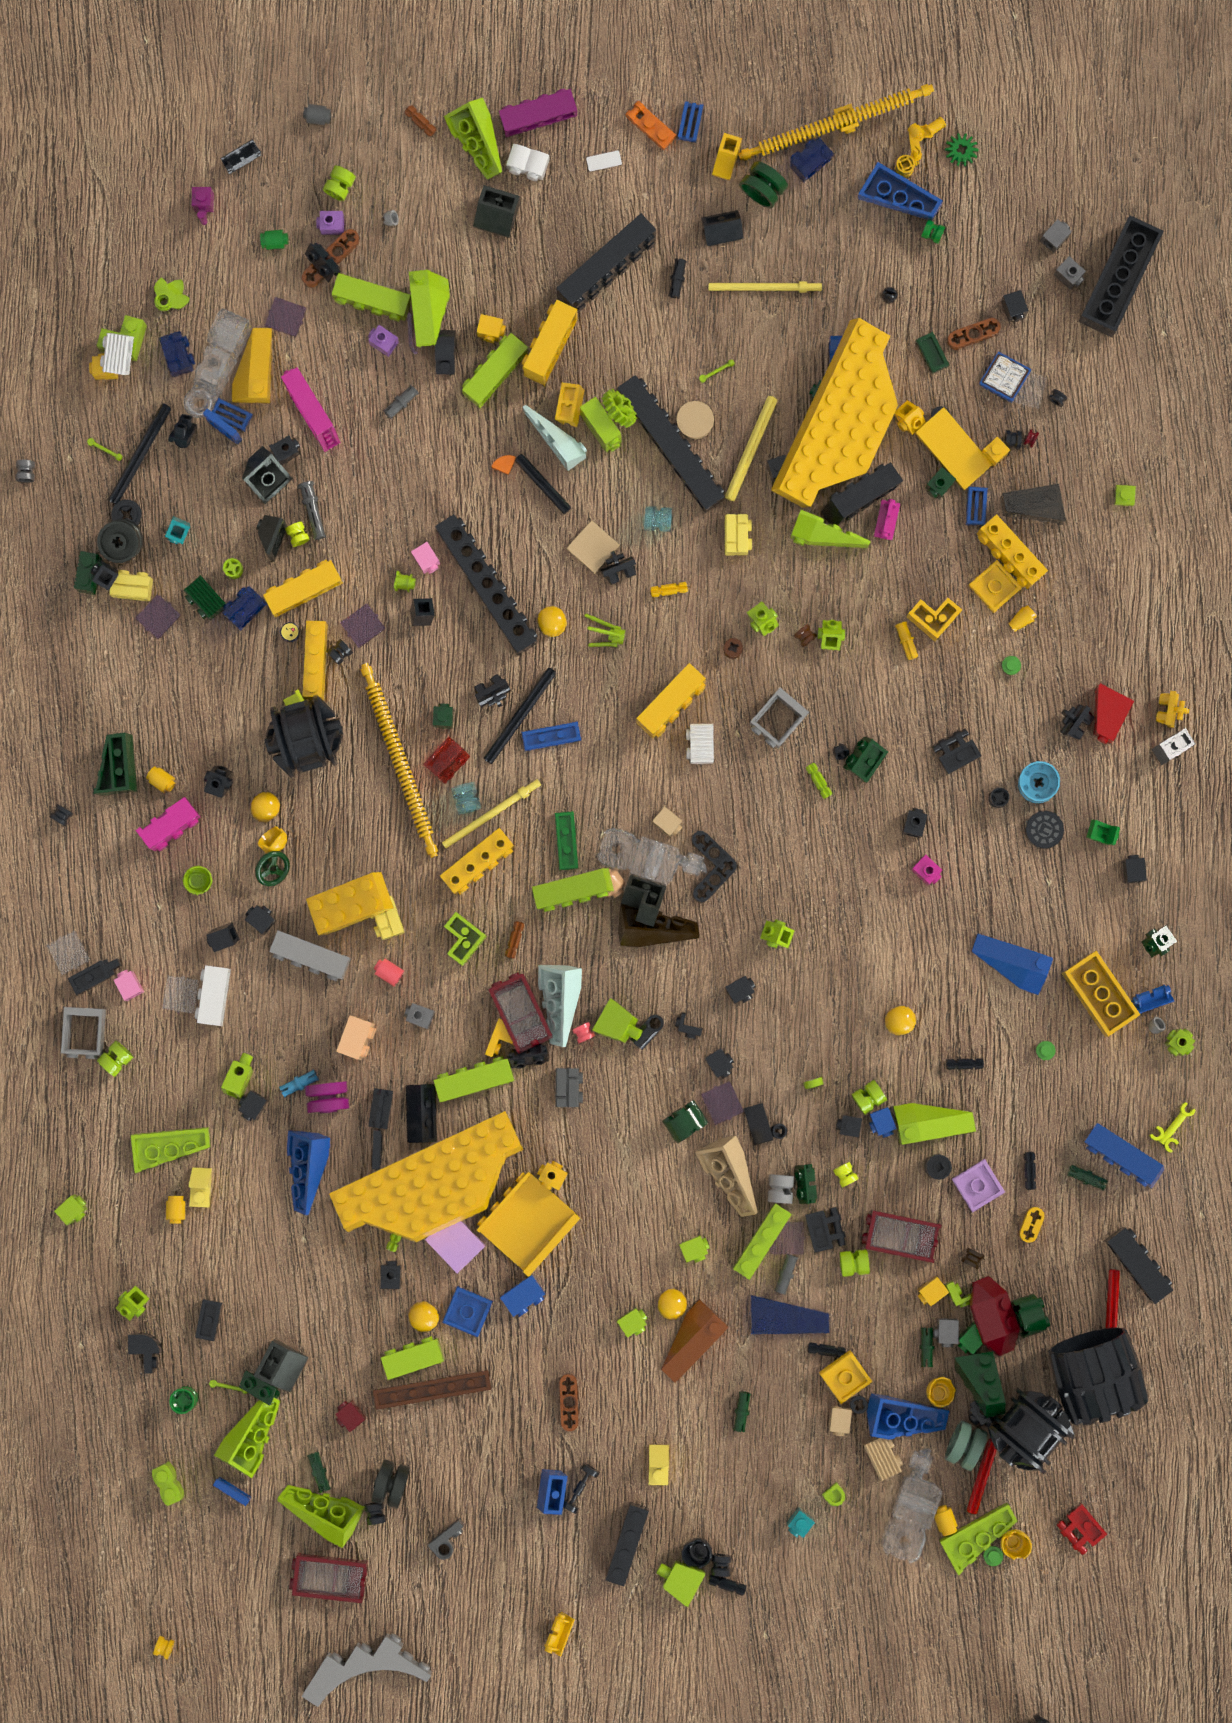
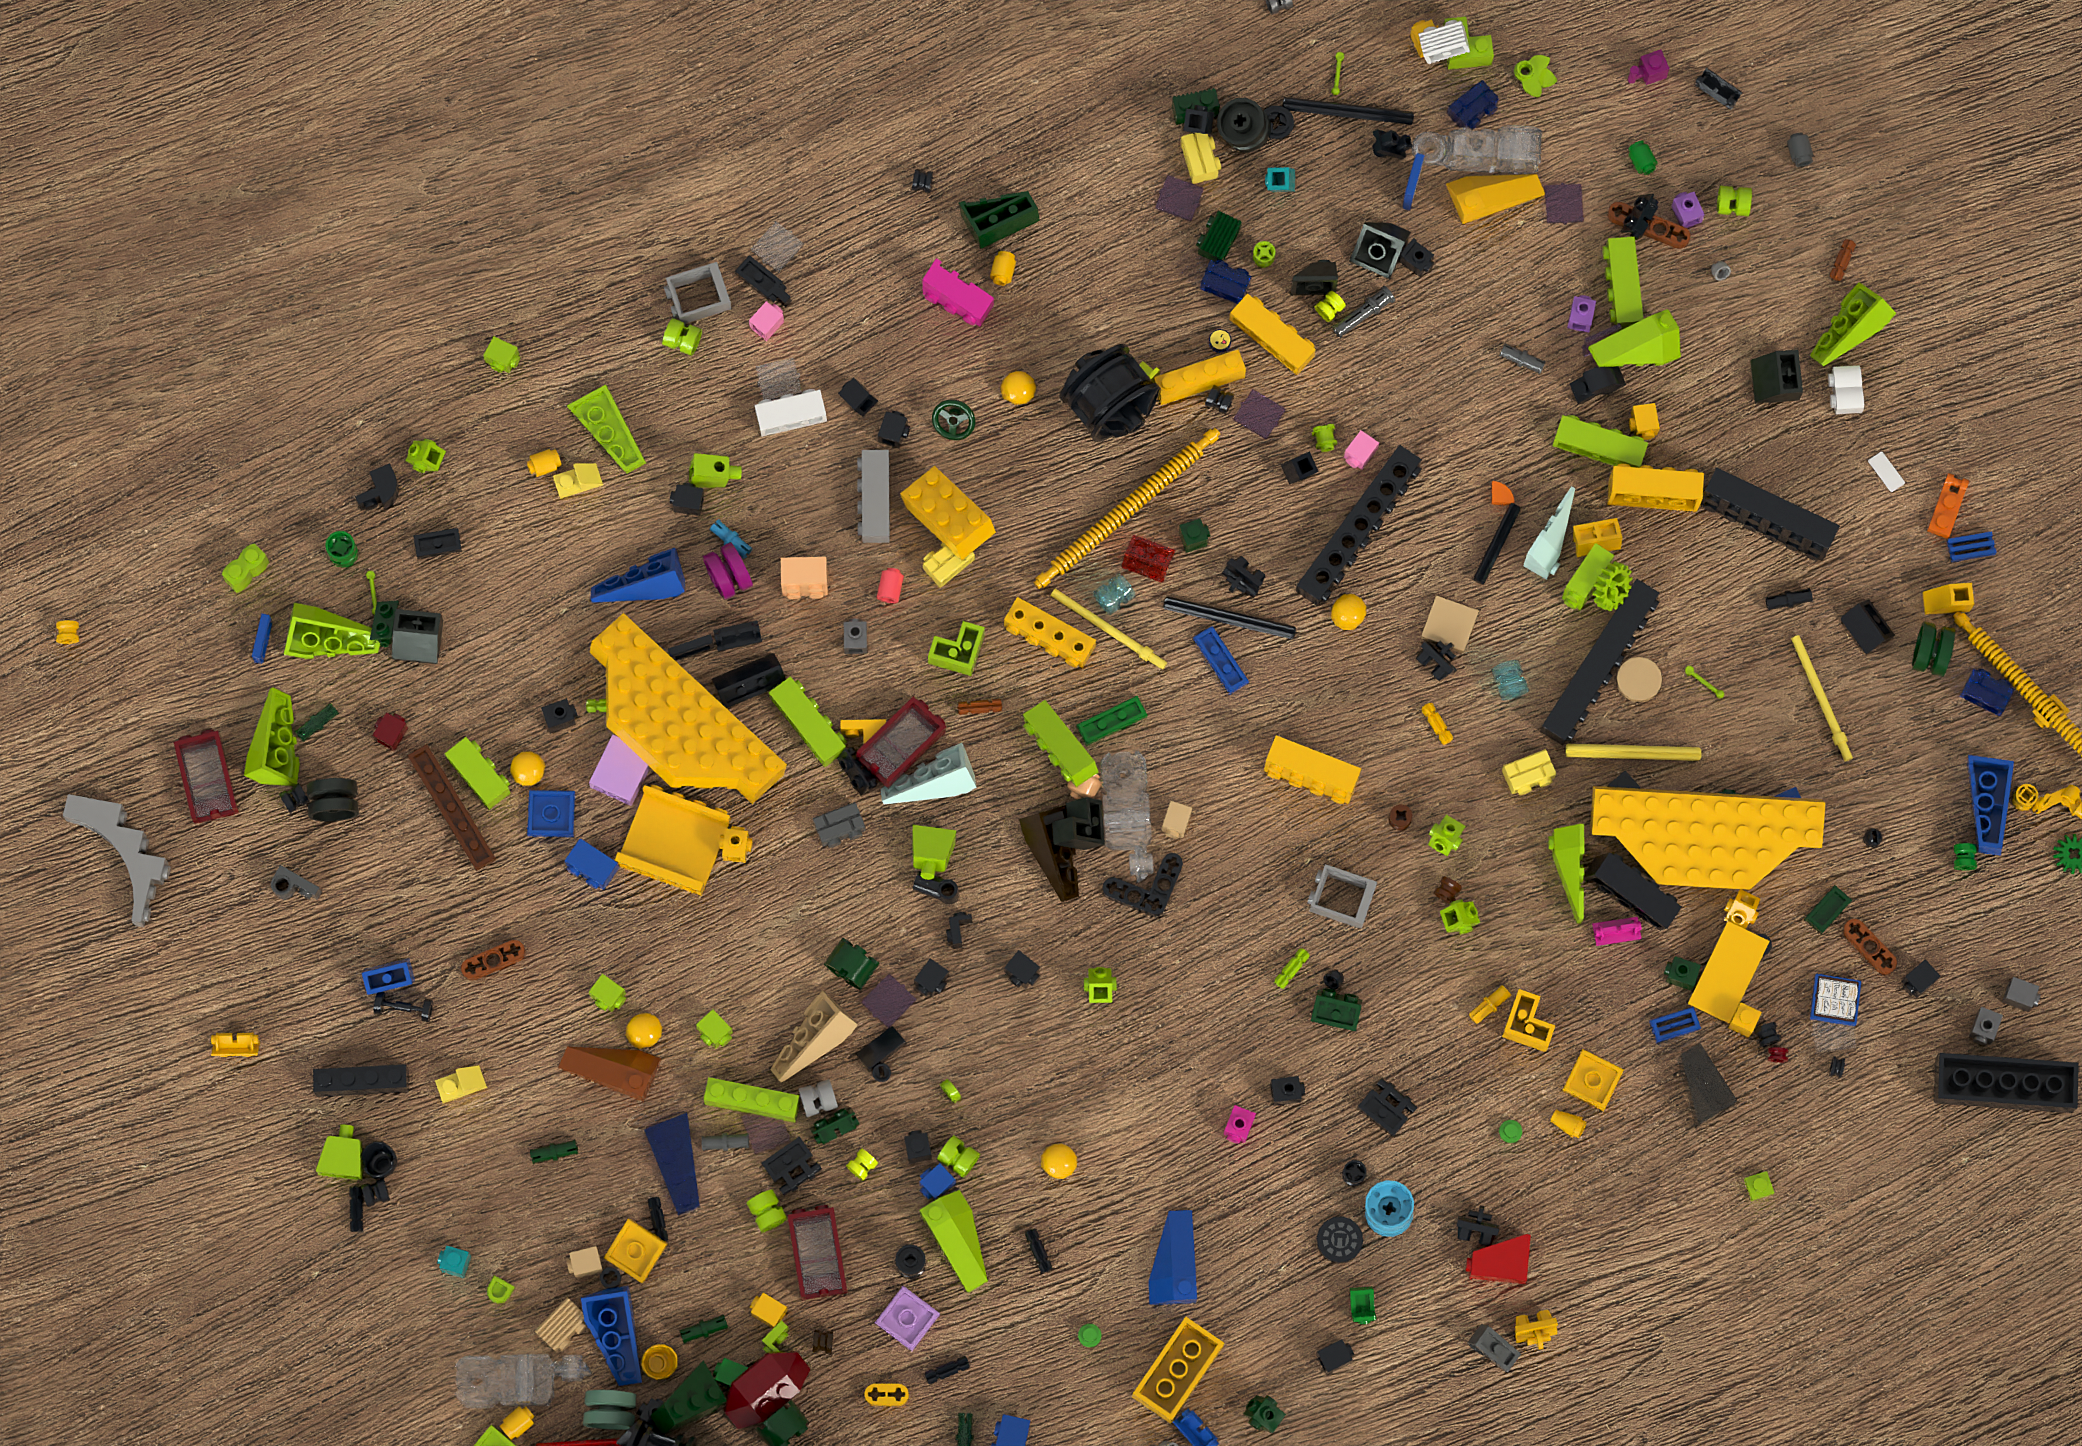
camera: 65 degrees right, 10 degrees down
(197, 880) = (909, 347): lime hair -> none
(218, 781) = (1025, 327): black brick -> none
(245, 421) = (1431, 206): blue tile -> none
(273, 840) = (984, 409): yellow hair -> none
(310, 409) = (1469, 262): dark pink window -> none
(538, 112) = (1907, 379): magenta brick -> none
(583, 1032) = (906, 819): coral wheel -> none
(616, 634) = (1360, 685): lime plant -> none
(701, 744) = (1279, 822): white brick -> none
(946, 1332) = (729, 1343): flat silver brick -> none
(1011, 552) = (1638, 1081): yellow brick -> none

